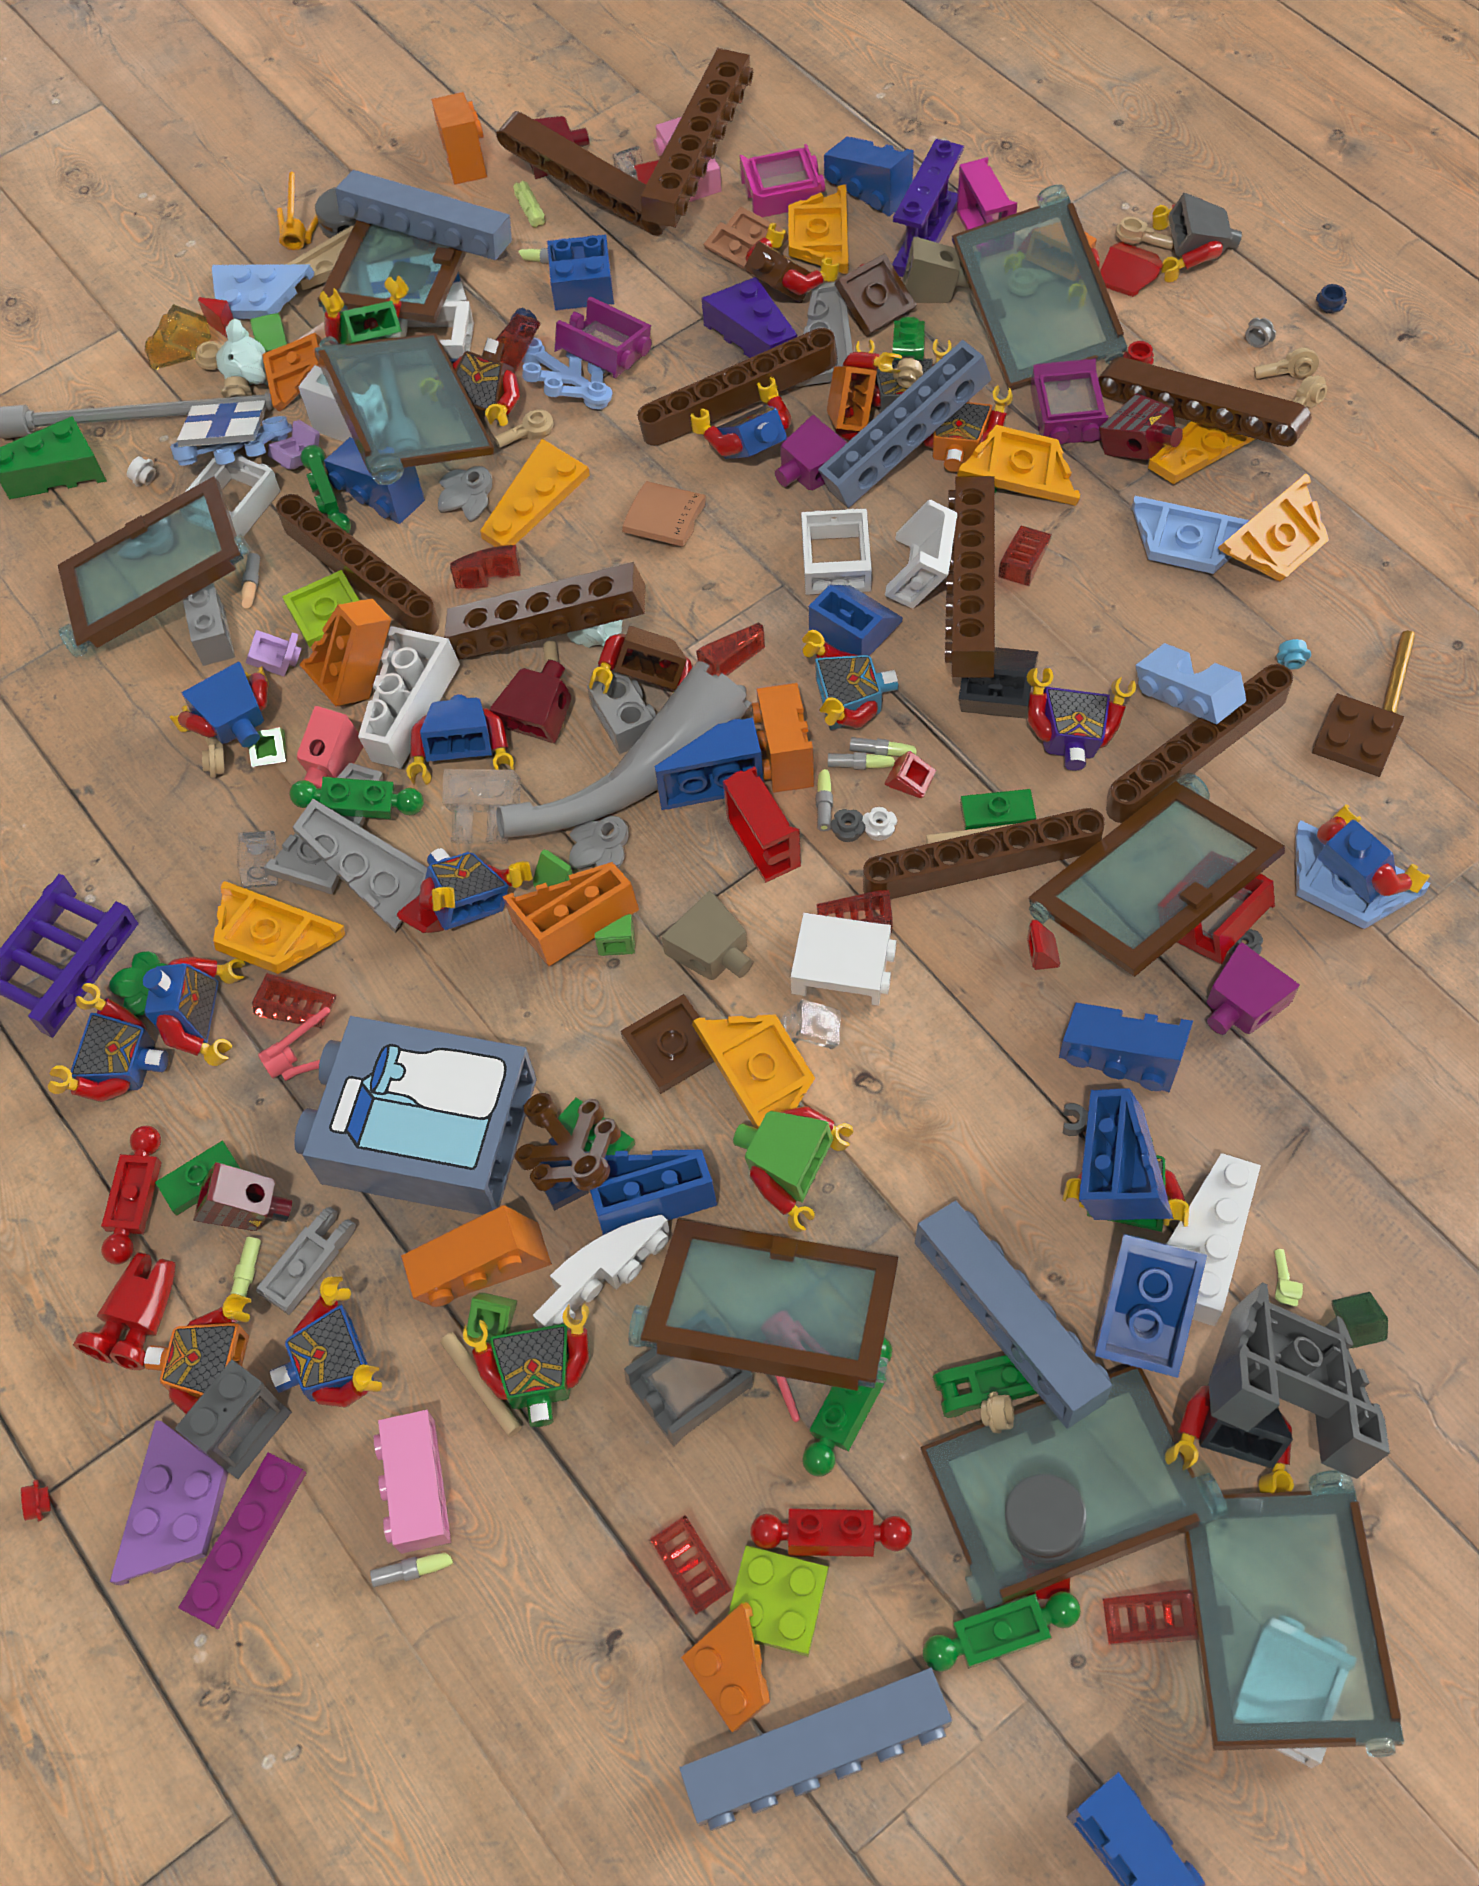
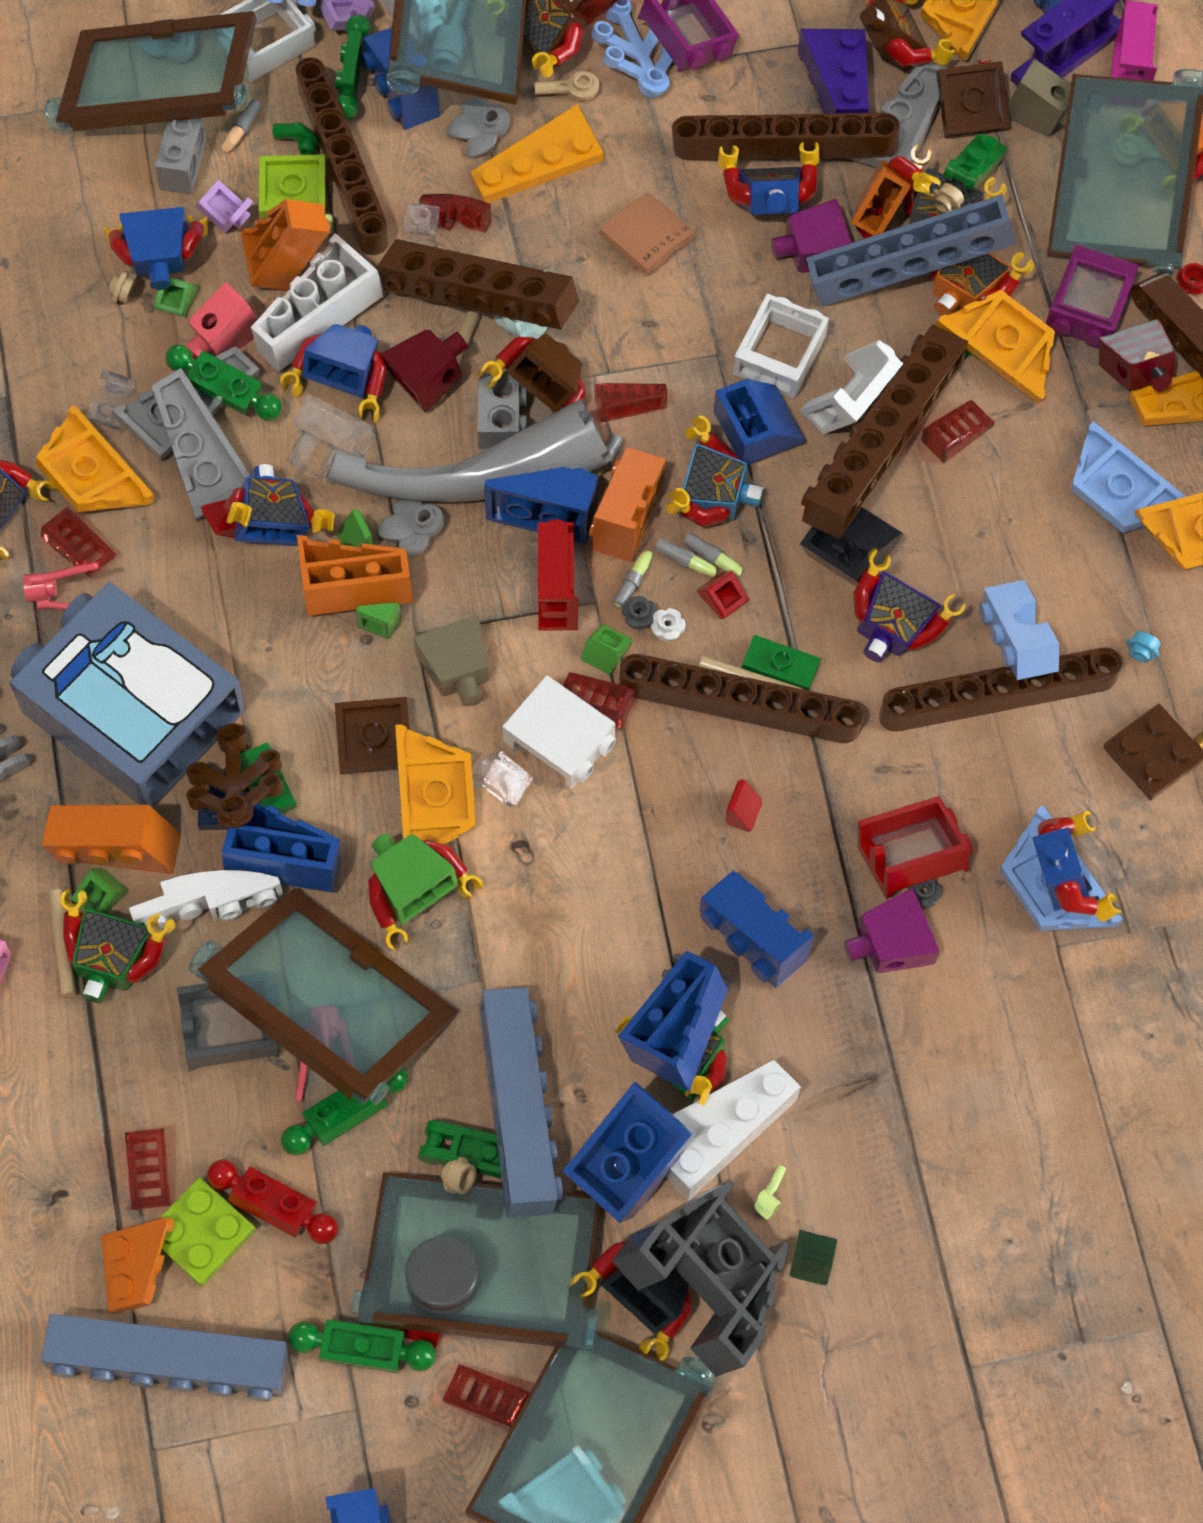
camera: 20 degrees right, 5 degrees up
(306, 563) = (300, 133): none -> green arm
(463, 586) = (421, 224): none -> clear bracket
(836, 870) = (605, 648): none -> bright green slope
(1156, 876) = (877, 791): door -> none

